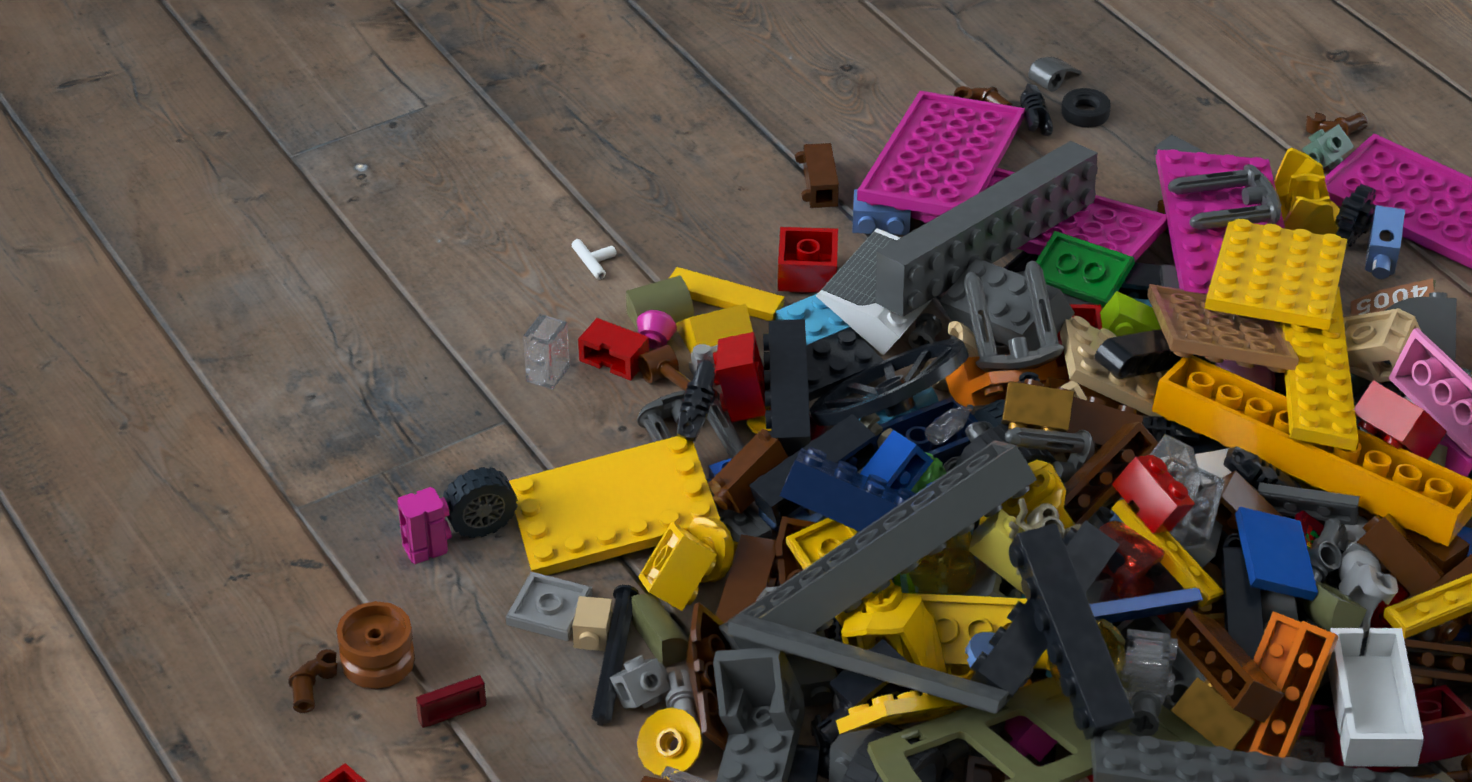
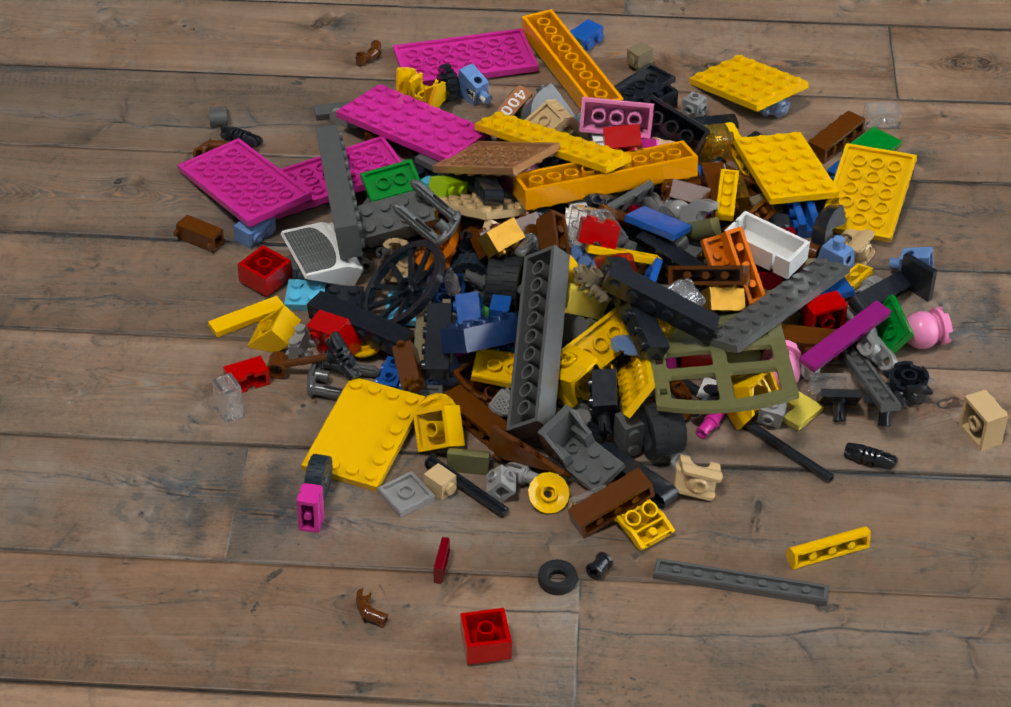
camera: 55 degrees left, 0 degrees up
(375, 644) = (377, 568): dark orange wheel -> none
(592, 258) = (160, 350): white piece -> none
(656, 326) = (249, 349): dark pink cone -> none
(665, 295) = (231, 342): olive brick -> none
(868, 663) = (606, 380): dark grey tile -> none
(1085, 118) = (257, 113): black tyre -> none
(1256, 191) = (409, 97): dark grey piece -> none
(1277, 274) = (480, 121): yellow plate -> none
(1328, 146) = (387, 63): sand green brick -> none

